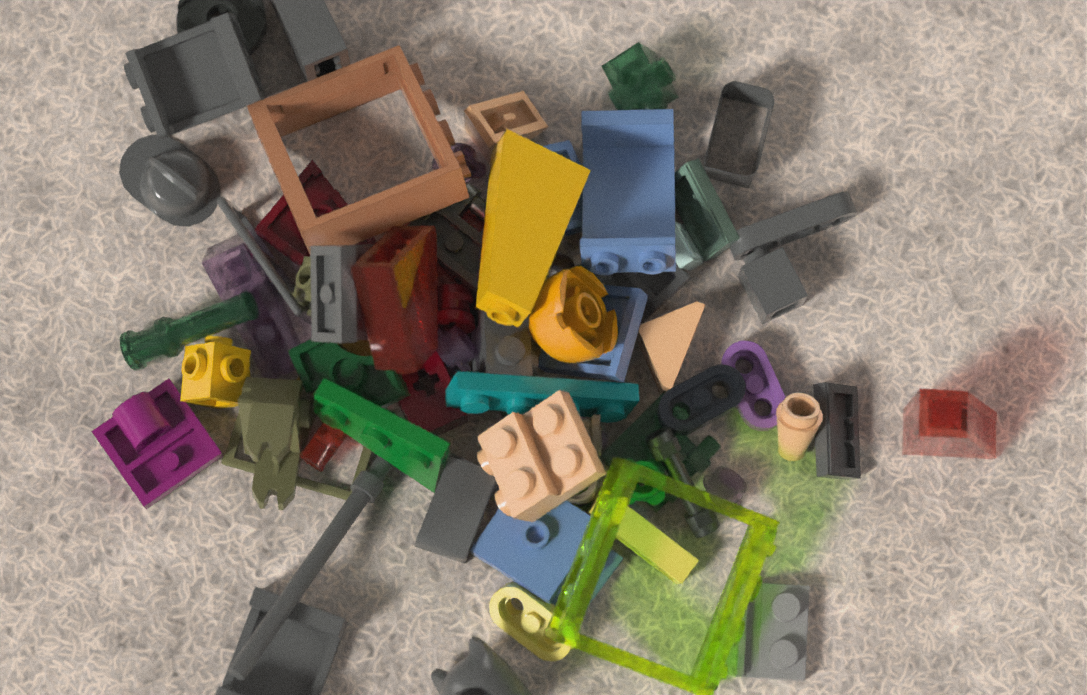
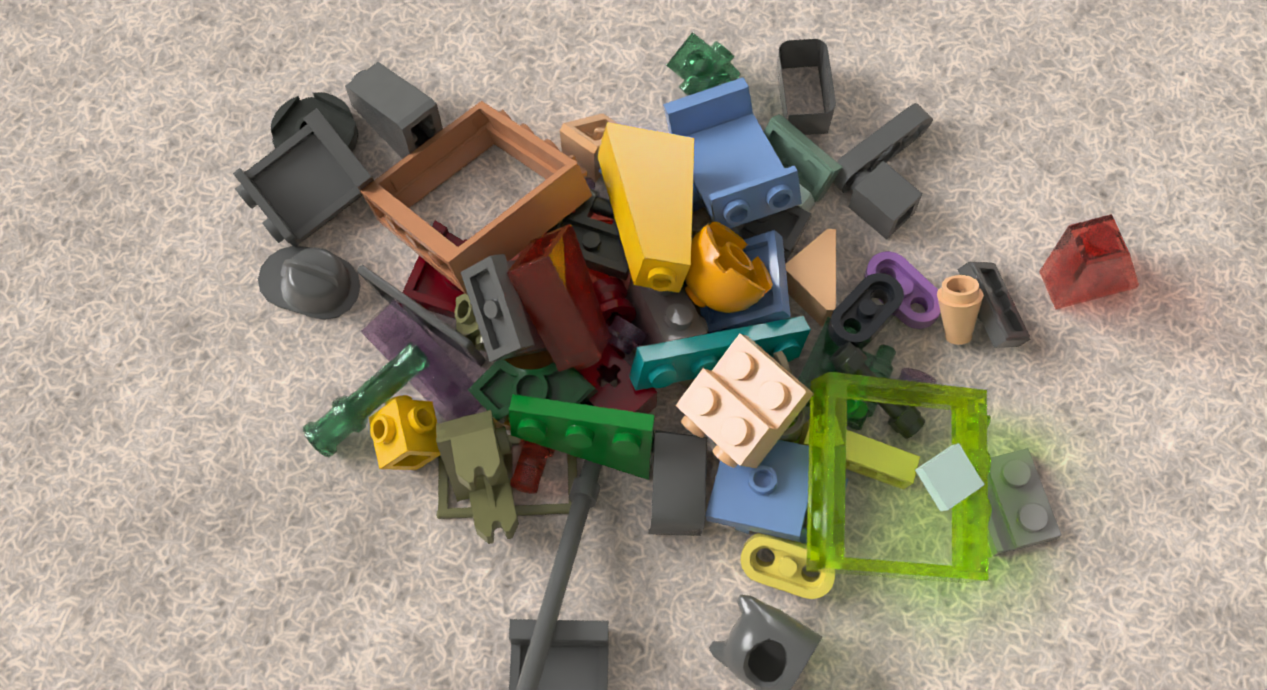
camera: 15 degrees left, 10 degrees down
(156, 442) = (368, 517): magenta plate -> none
(707, 594) = (949, 477): none -> light aqua tile

